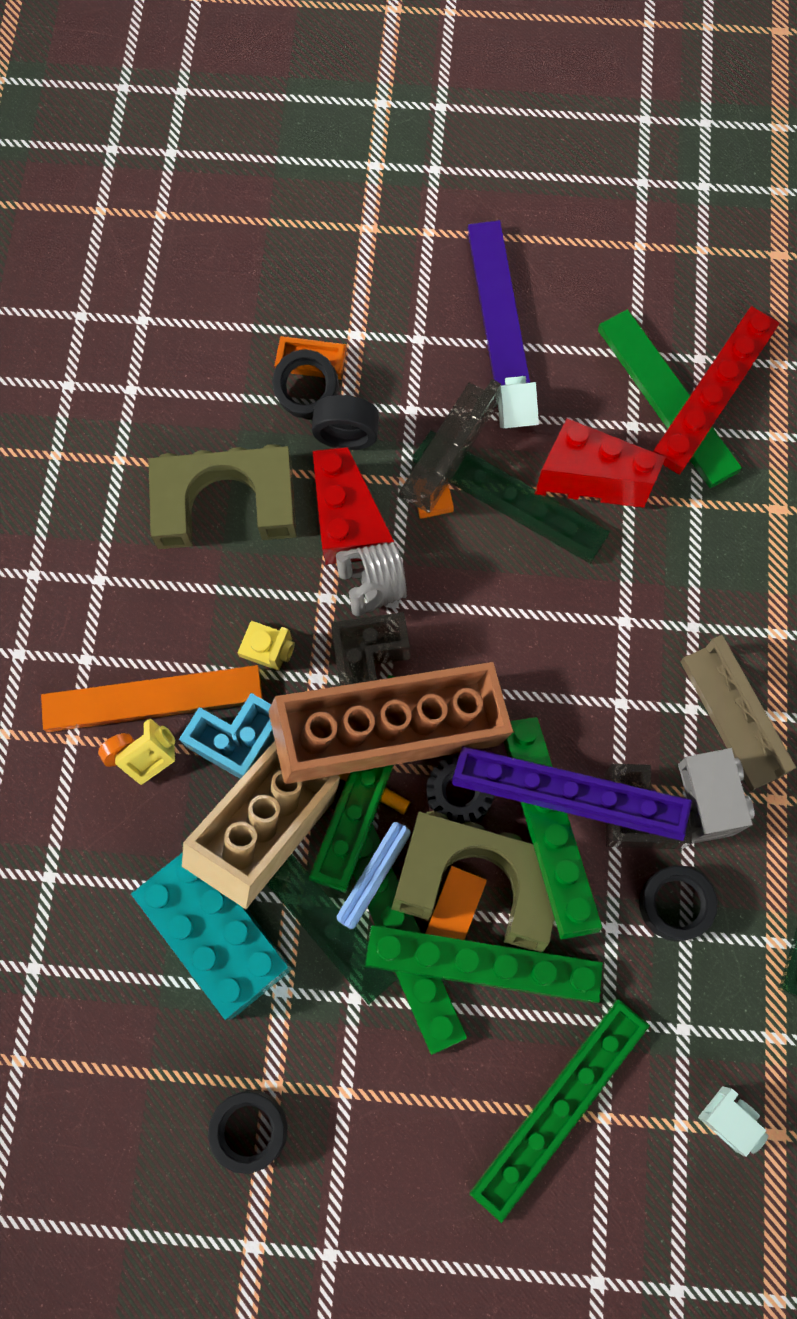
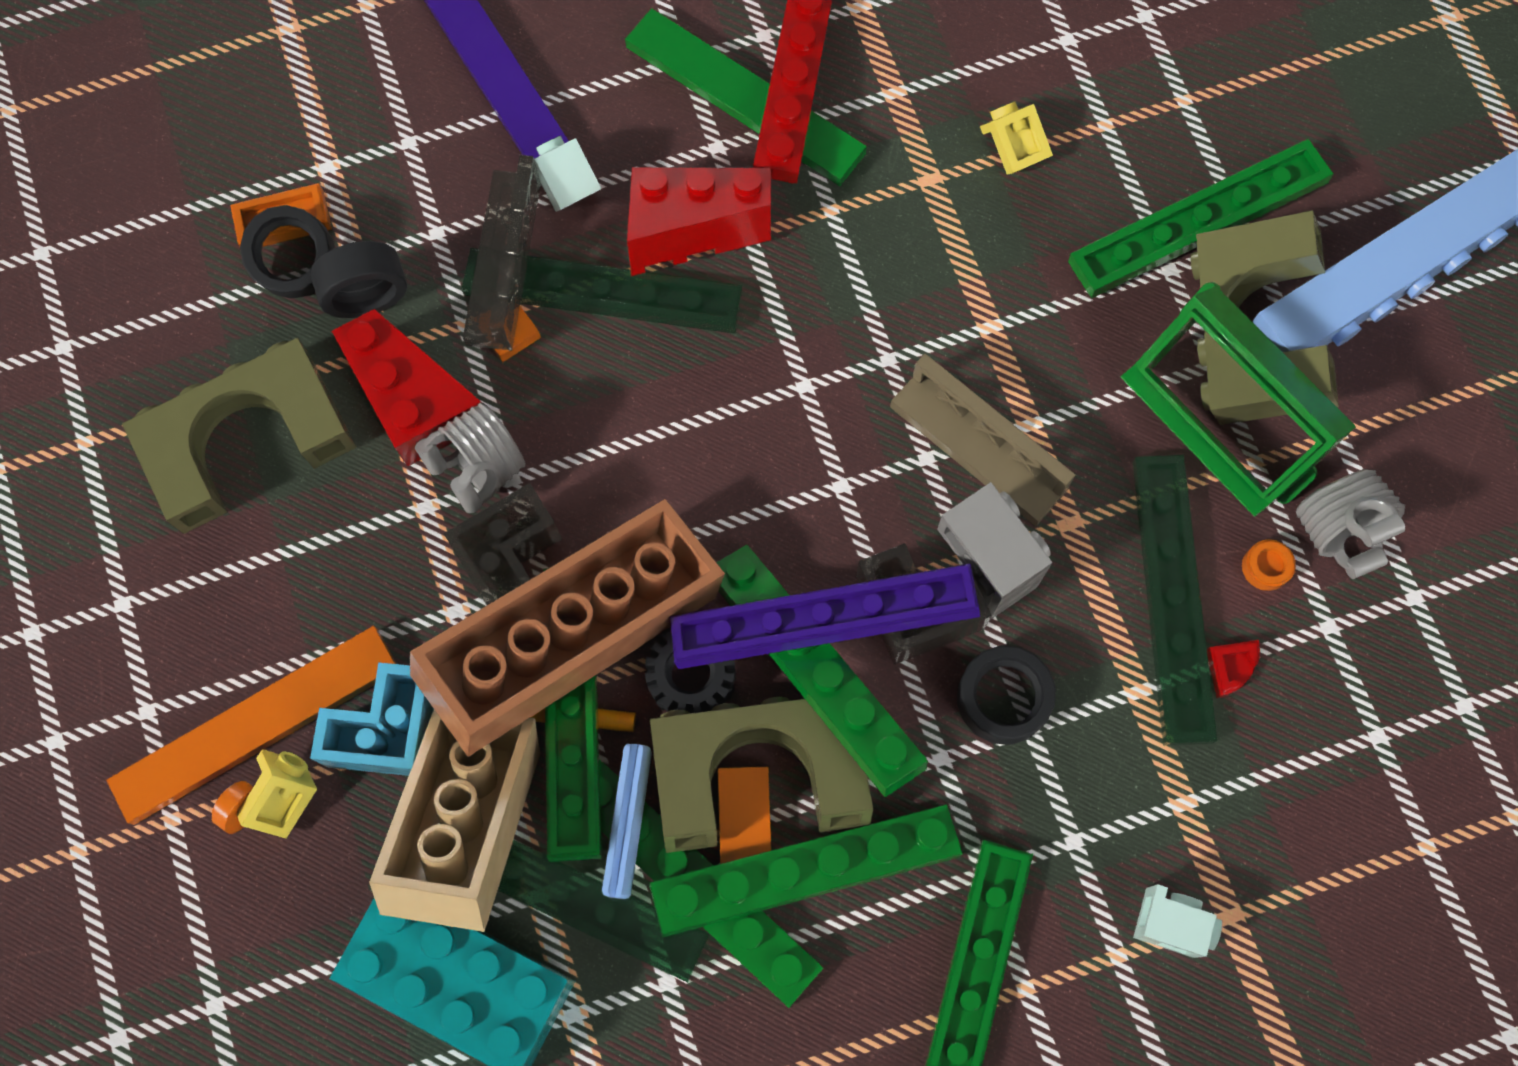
camera: 25 degrees left, 0 degrees up
(266, 645) = (374, 596): light yellow bracket -> none

